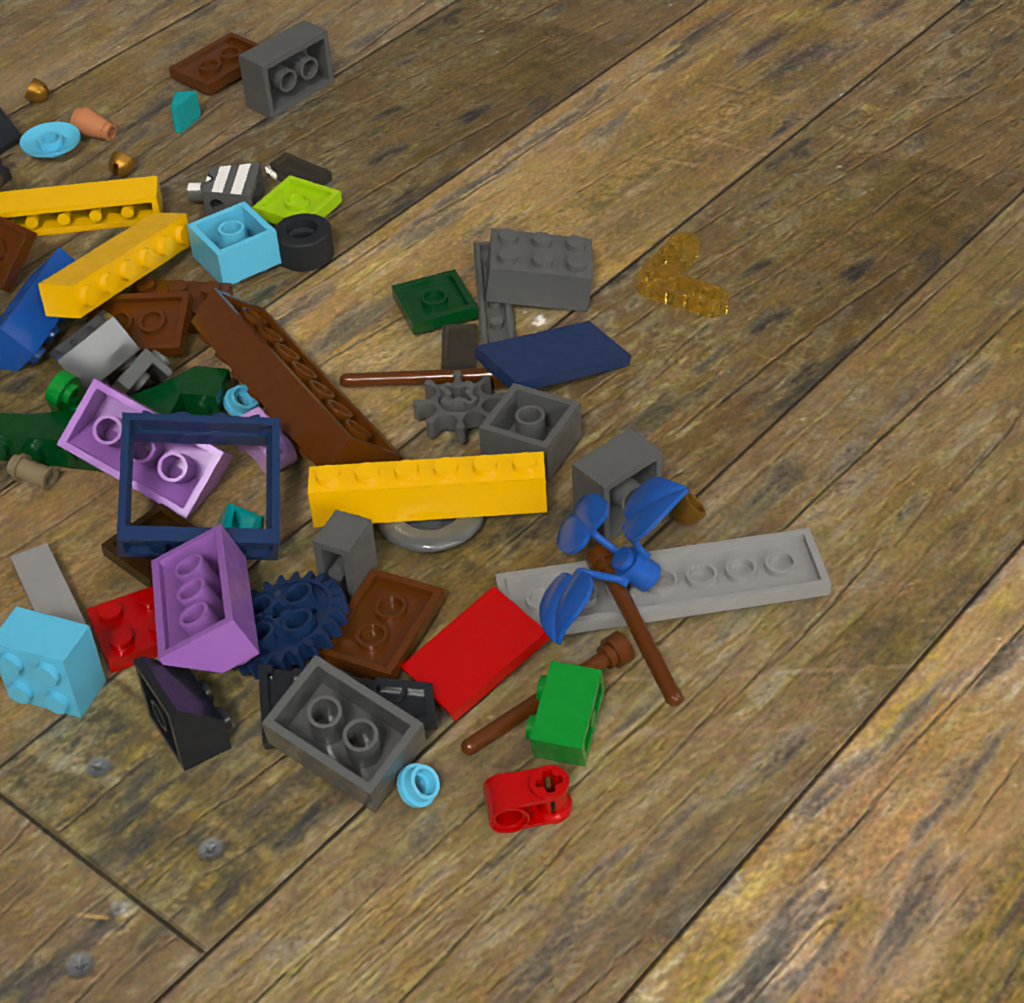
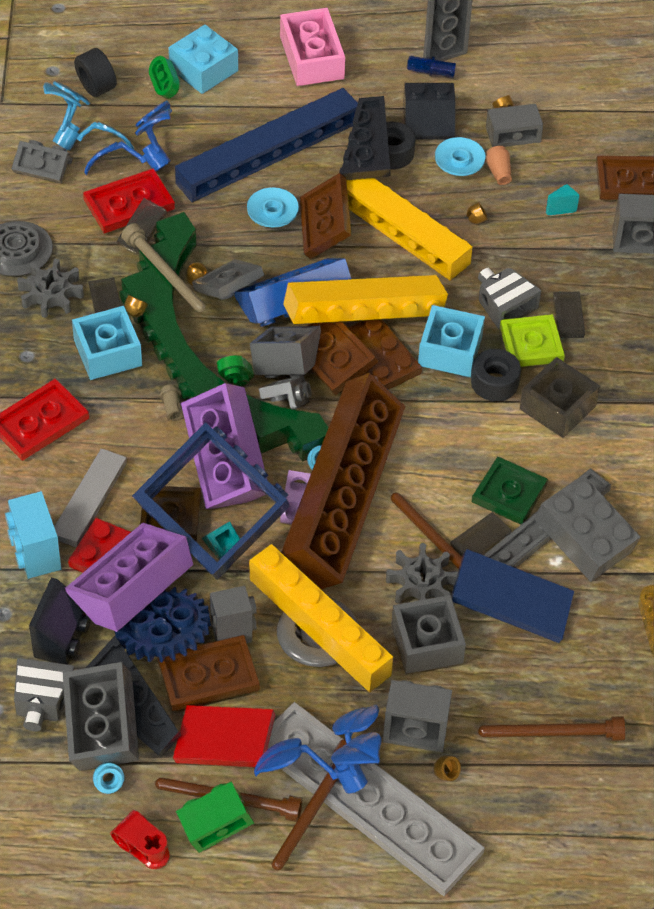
camera: 45 degrees right, 10 degrees up
(66, 92) = (514, 125): none -> dark grey brick
(240, 781) = (39, 691): none -> dark grey torso
(382, 214) = (559, 397): none -> clear smoke brick
(762, 376) = (611, 729): none -> reddish brown piece

